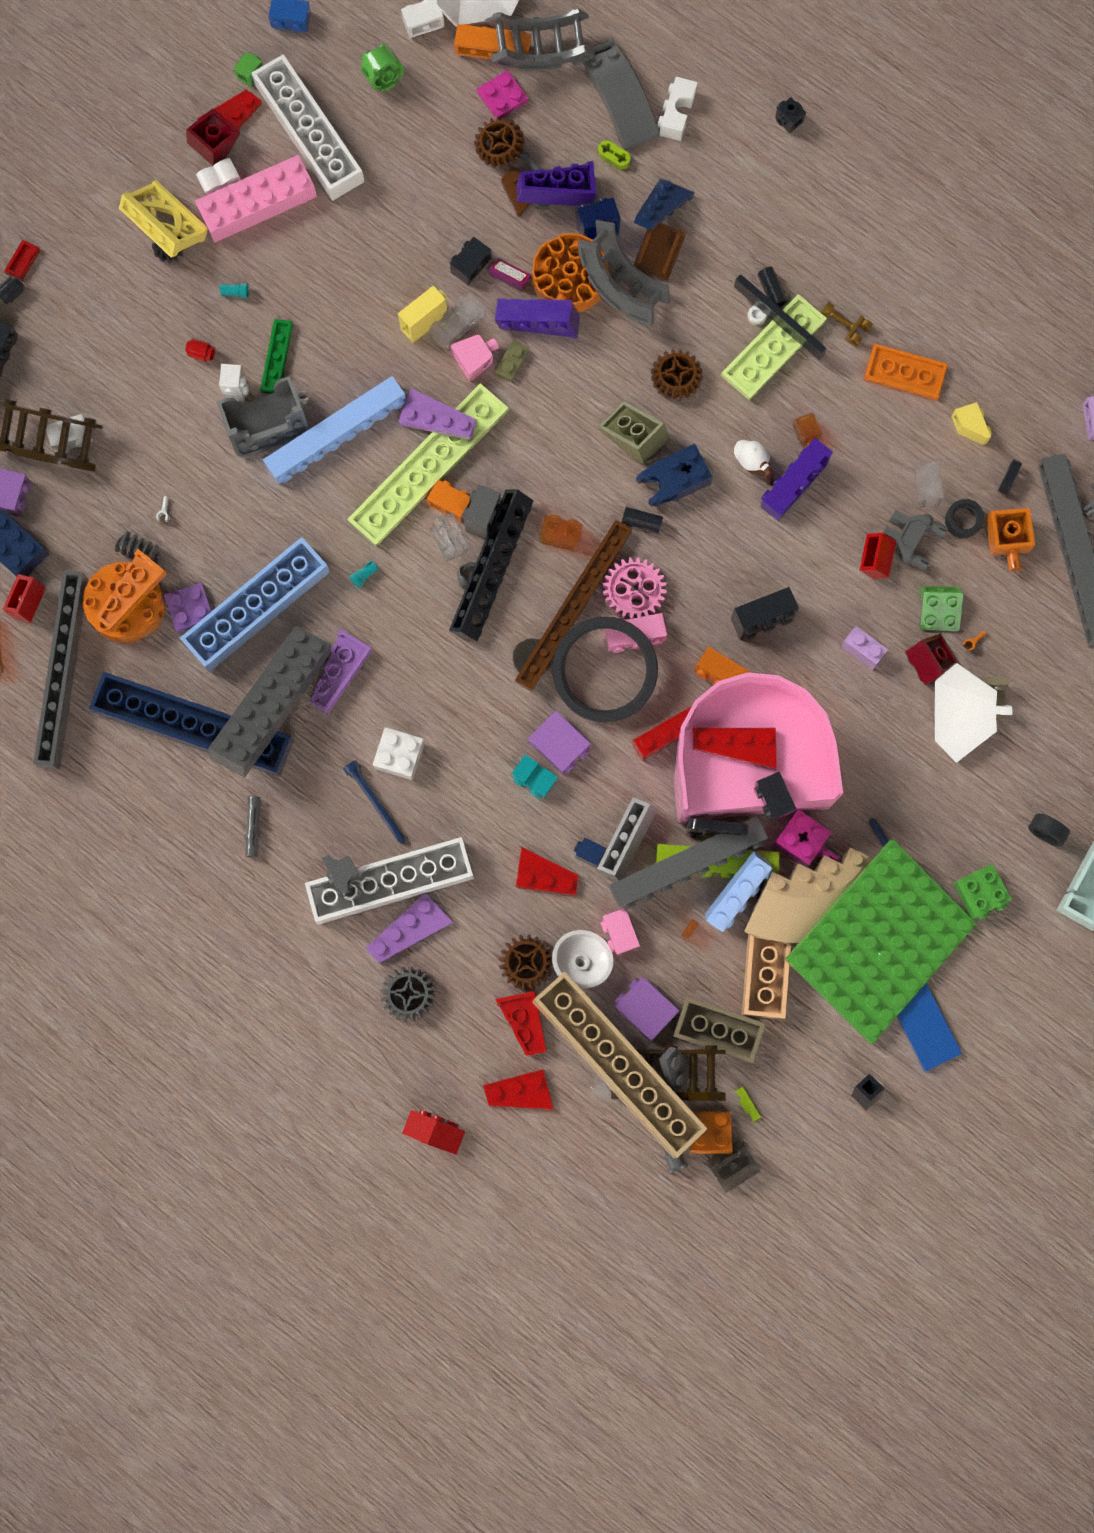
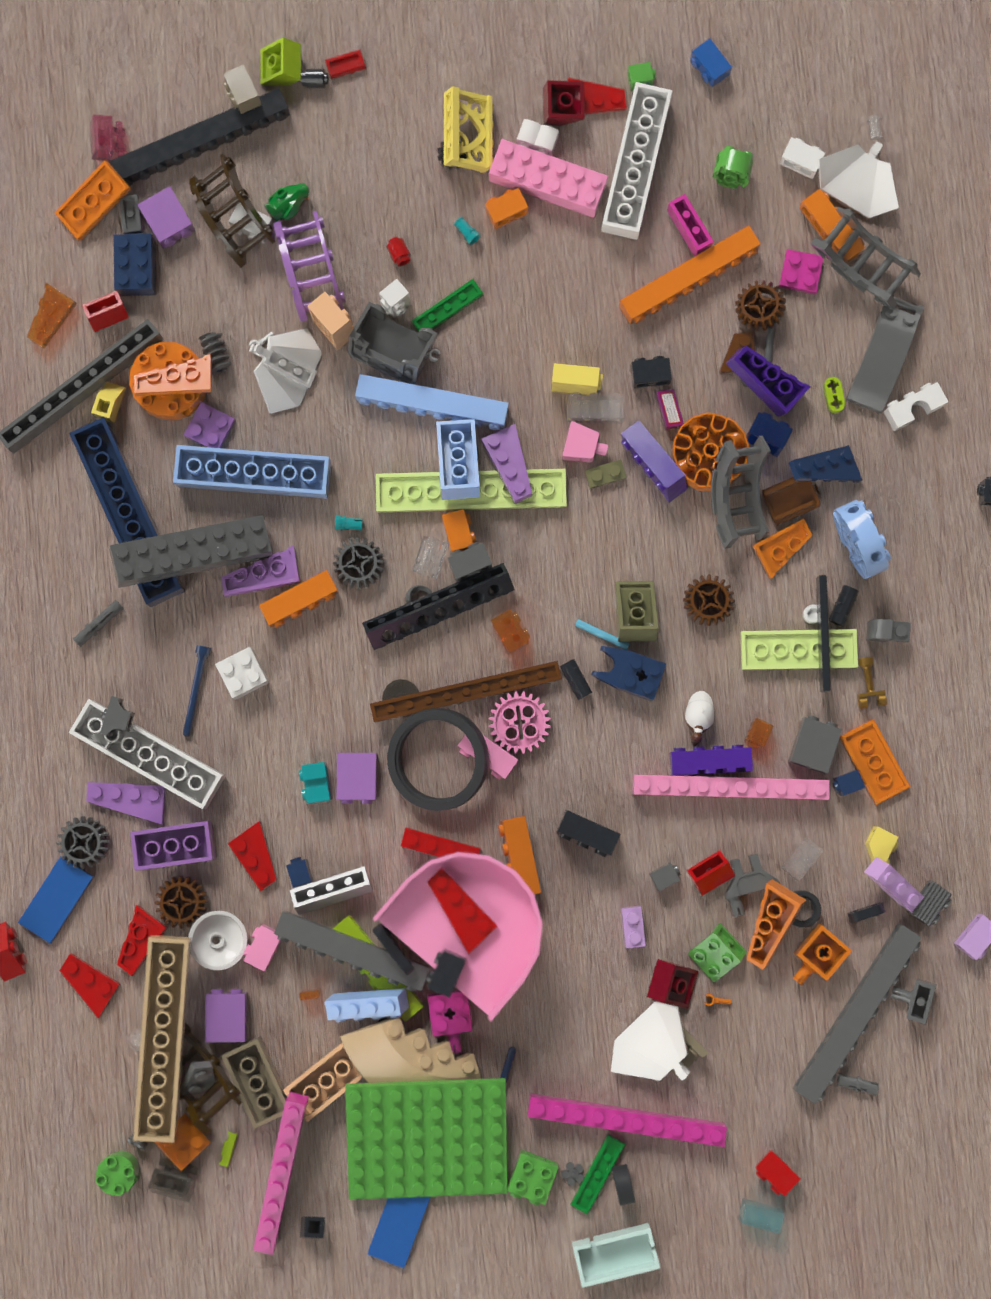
camera: 50 degrees right, 5 degrees up
(80, 393) = (287, 201): none -> green animal
(94, 660) = (108, 402): none -> light yellow slope
(133, 432) = (292, 265): none -> medium lavender fence
(203, 440) = (331, 319): none -> light nougat brick
(204, 509) = (286, 368): none -> white panel
(247, 247) = (506, 208): none -> orange brick
(384, 660) = (298, 599): none -> orange brick
(392, 135) = (689, 225): none -> dark pink brick
(398, 448) = (458, 459): none -> light blue brick
(414, 601) = (350, 565): none -> dark grey gear
(427, 170) = (689, 275): none -> orange brick
(431, 1057) = (55, 900): none -> blue tile
(478, 926) = (173, 845): none -> medium lavender brick
(625, 472) = (602, 634): none -> medium azure bar
(686, 290) = (781, 546): none -> orange wing
(687, 1204) = (117, 1173): none -> bright green brick
(738, 224) = (862, 538): none -> light blue brick
(805, 1074) = (281, 1173): none -> dark pink brick
(819, 272) = (888, 630): none -> dark grey brick
(827, 485) = (730, 787): none -> bright pink brick
(848, 591) = (665, 876): none -> dark grey brick
(854, 399) = (815, 744): none -> dark grey brick
(904, 402) = (848, 783): none -> dark blue brick
(956, 540) = (775, 918): none -> orange wedge
(1002, 785) = (627, 1120): none -> dark pink brick
(1006, 862) = (573, 1173): none -> dark grey plant
(1008, 435) = (894, 884): none -> lavender brick
(1022, 845) = (597, 1174): none -> green tile
(1045, 427) = (931, 905): none -> dark grey brick

